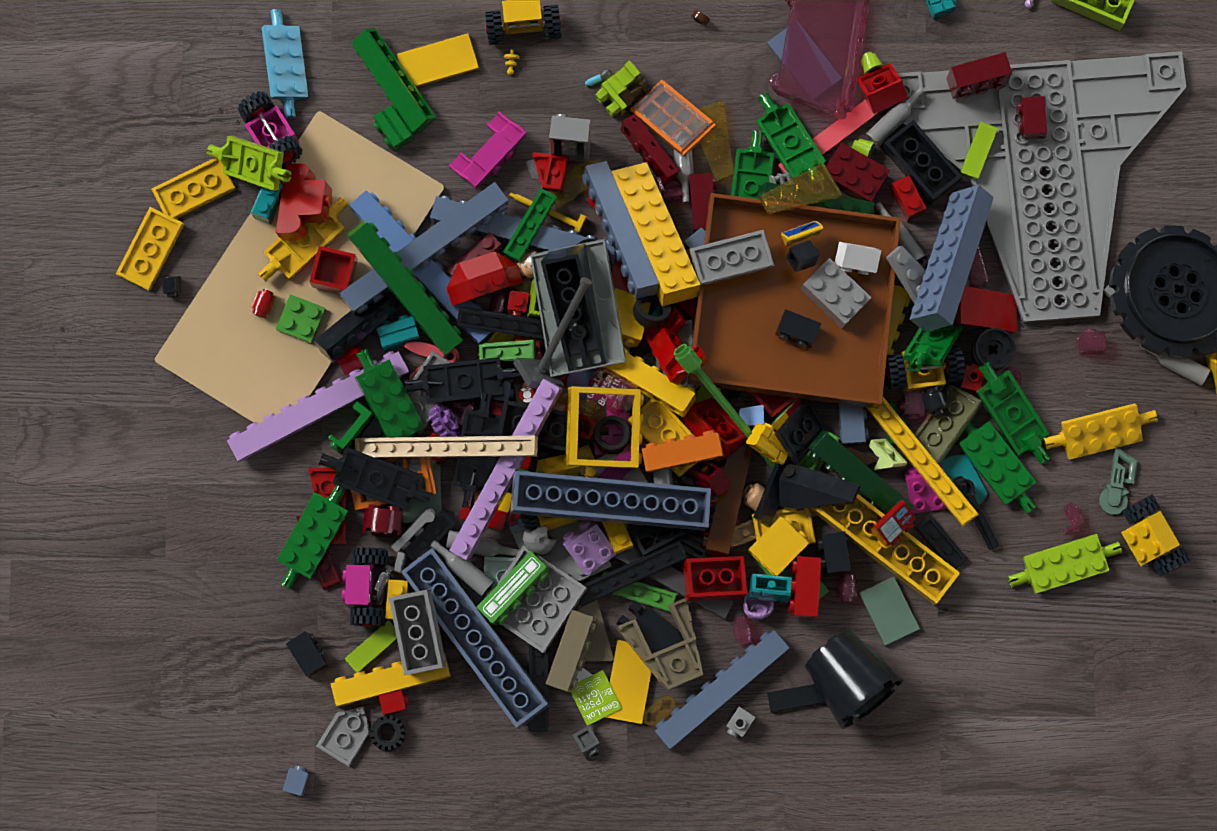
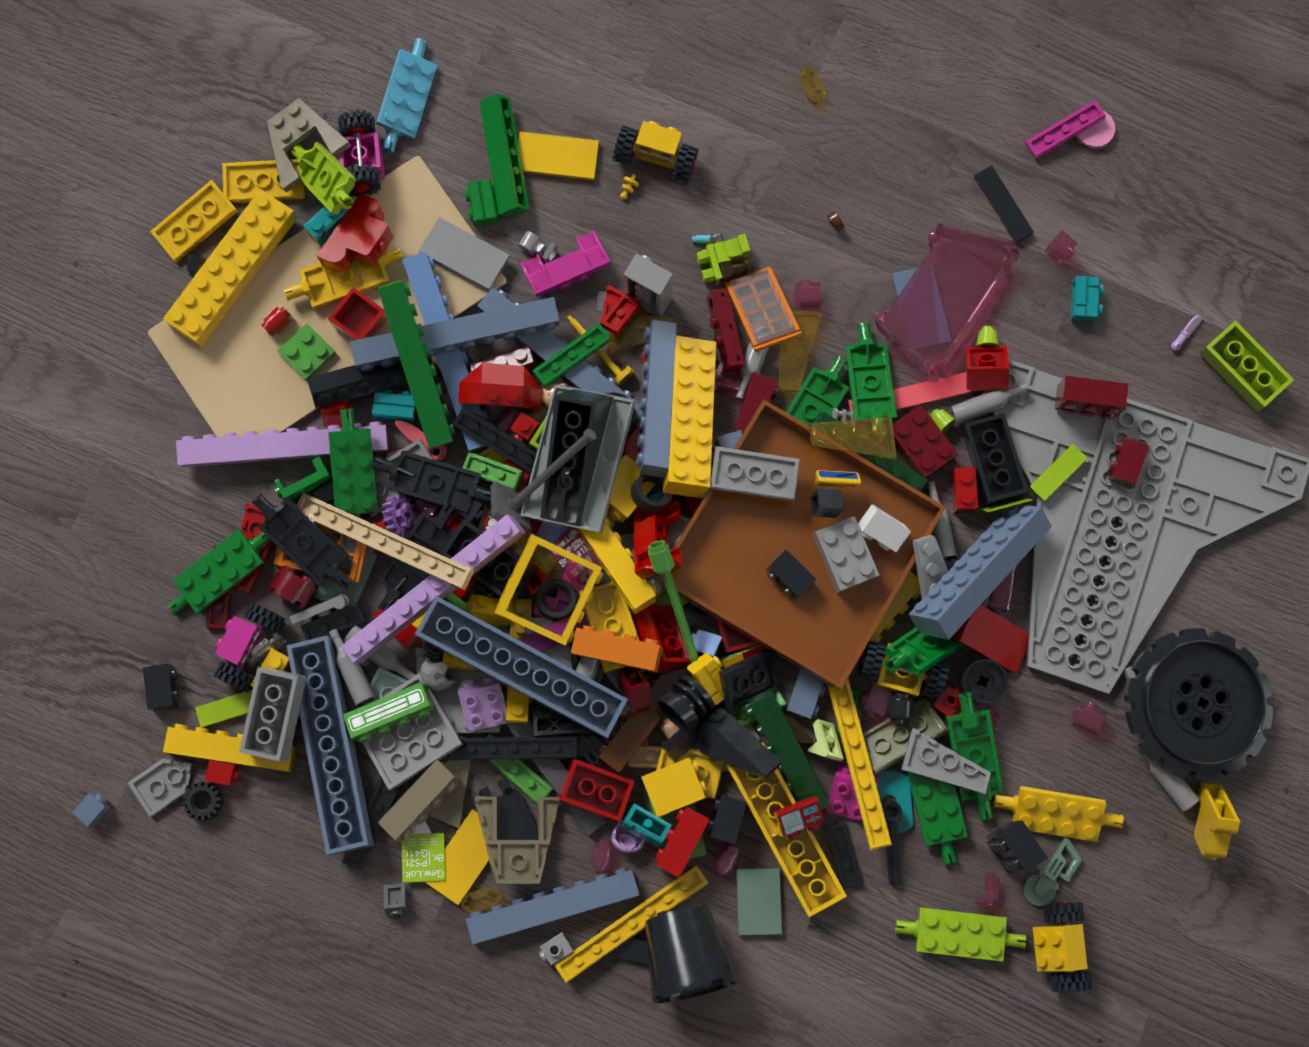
camera: 25 degrees right, 0 degrees up
(199, 132) = (291, 128): none -> dark tan wing
(203, 275) = (230, 268): none -> yellow brick
(398, 178) = (464, 253): none -> light grey tile
(400, 562) = (292, 636): light grey tile -> none
(450, 146) = (532, 244): none -> light grey leg
(704, 90) = (807, 294): none -> clear pink brick
(758, 472) = (685, 703): none -> black wheel
(791, 676) = (630, 924): none -> yellow tile
(947, 195) = (1005, 504): none -> lime sticker
(983, 431) = (940, 763): none -> light grey wing
(1080, 471) = (1016, 847): none -> black brick

